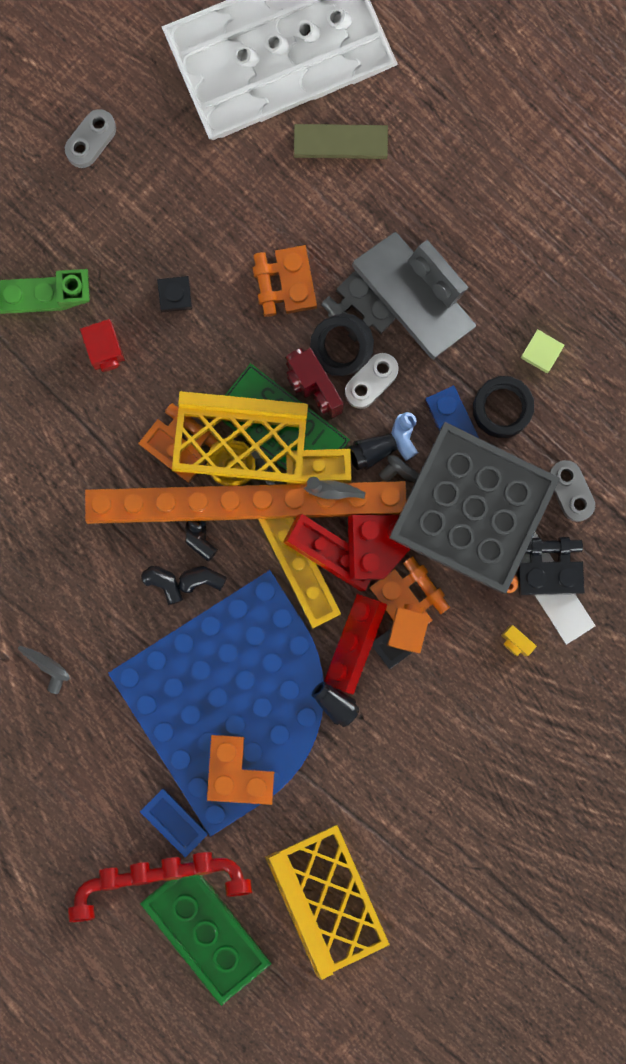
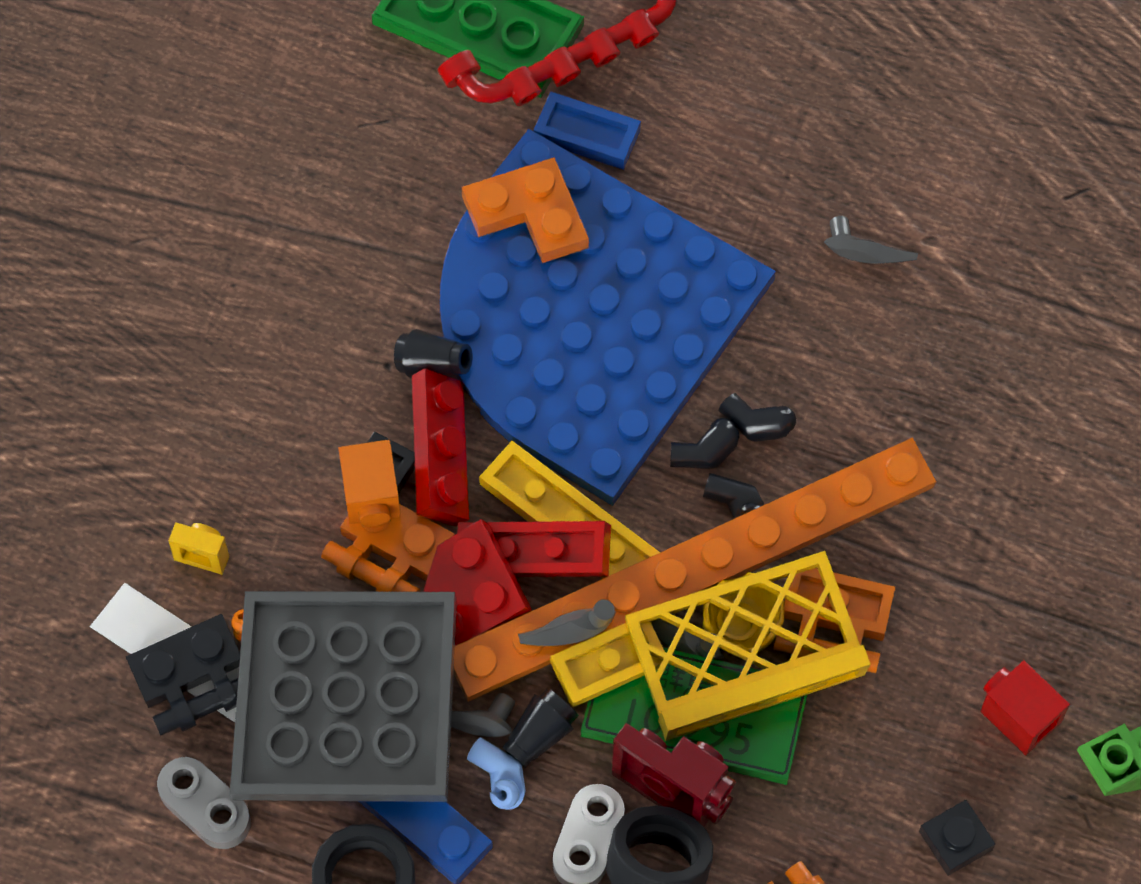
camera: 155 degrees right, 20 degrees down
(301, 912) = (365, 92): yellow fence -> none

